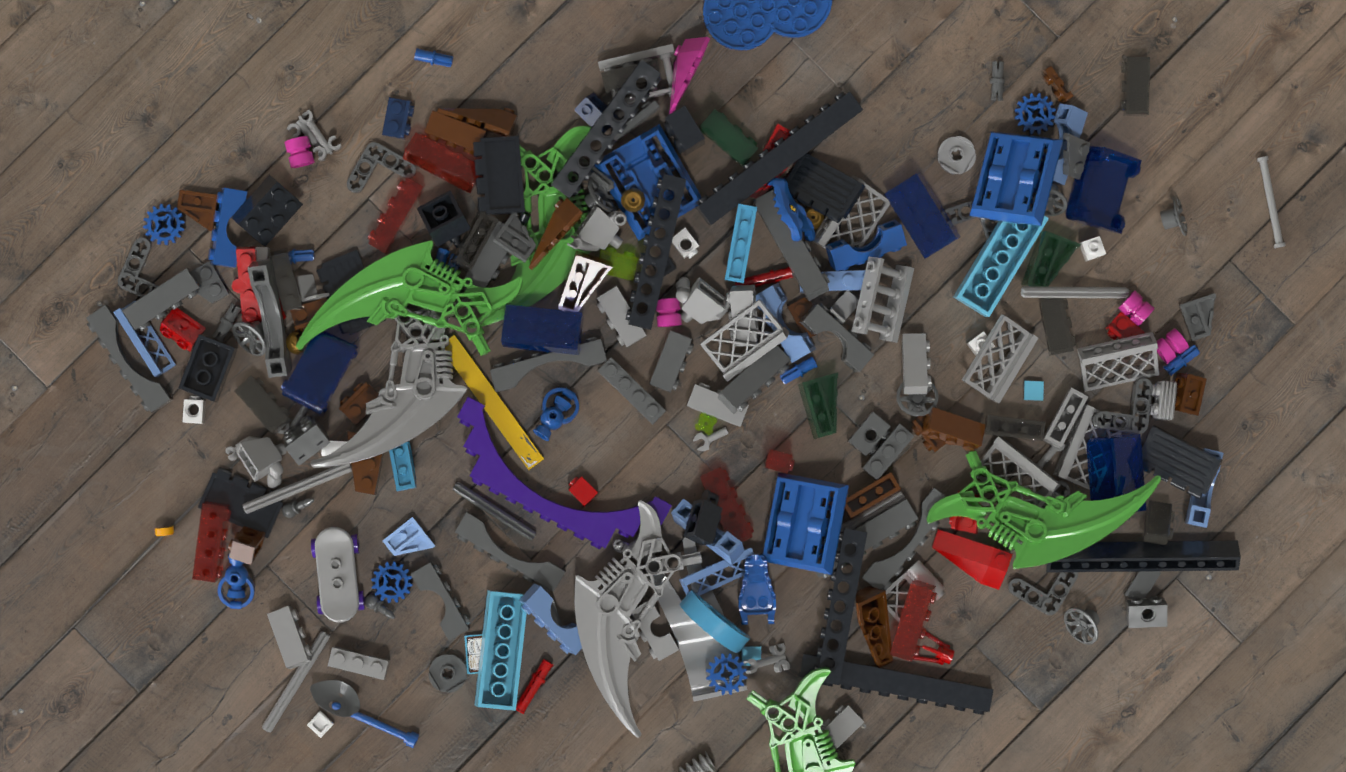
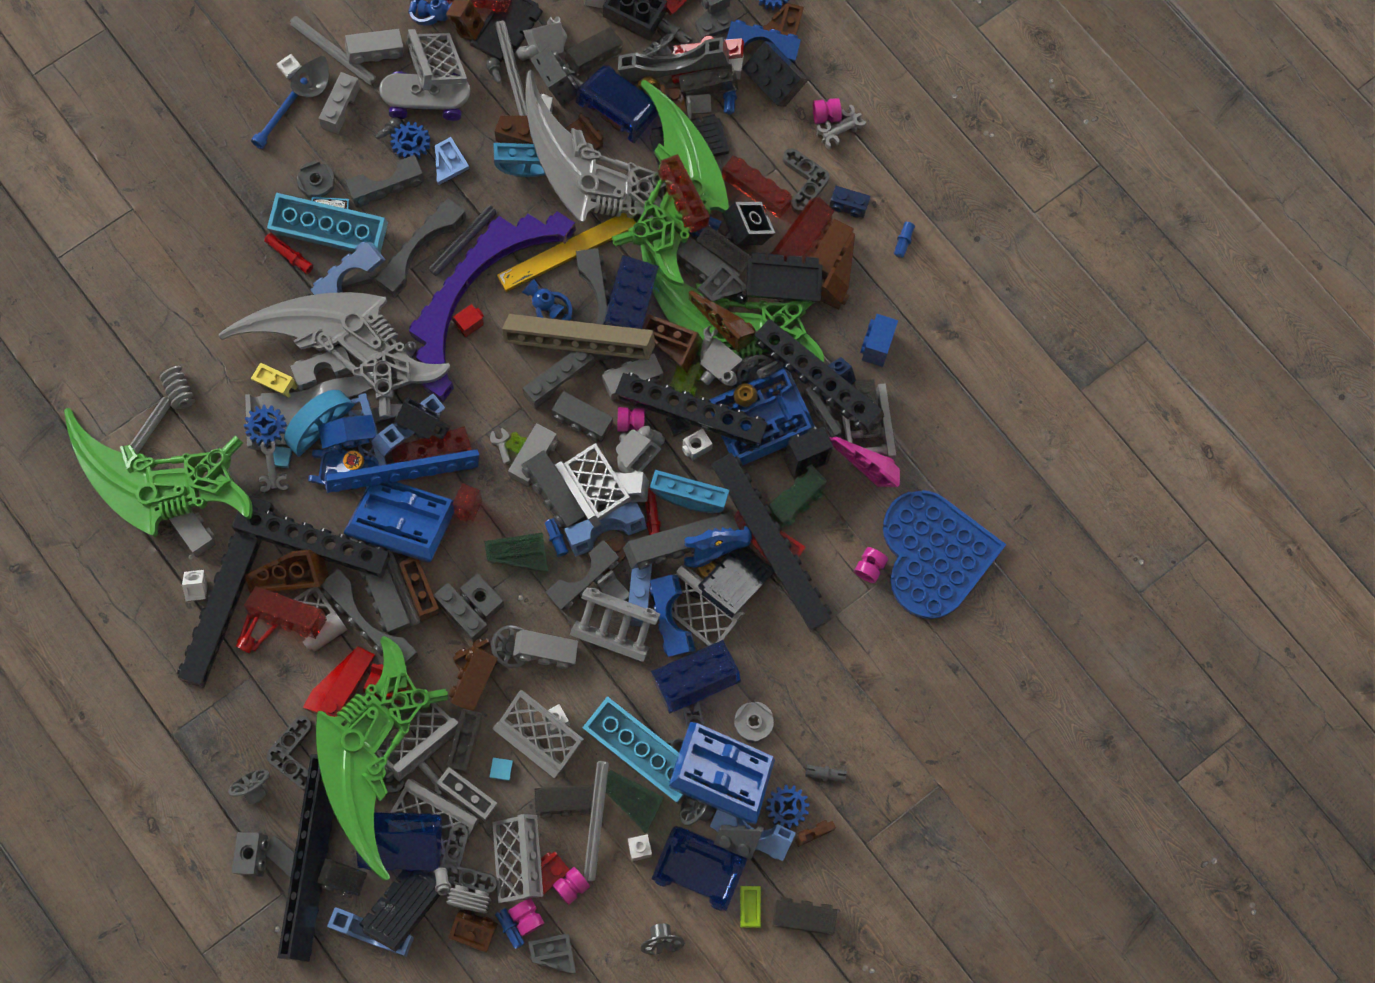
camera: 90 degrees right, 15 degrees down
(307, 582) = (422, 60): none -> light grey fence
(428, 286) = (684, 193): none -> clear red brick
(552, 72) = (878, 339): none -> blue brick
(593, 375) = (578, 336): none -> dark tan brick
(676, 675) = (274, 379): none -> light yellow hinge
(726, 589) = (347, 432): none -> blue brick
(753, 579) = (353, 460): none -> tile
(759, 535) = (401, 471): none -> blue plate
(793, 61) = (872, 562): none -> dark pink wheel
(896, 714) = (194, 585): none -> white brick
(1131, 138) = (750, 906): none -> lime tile
(1151, 427) = (443, 886): none -> light grey pin

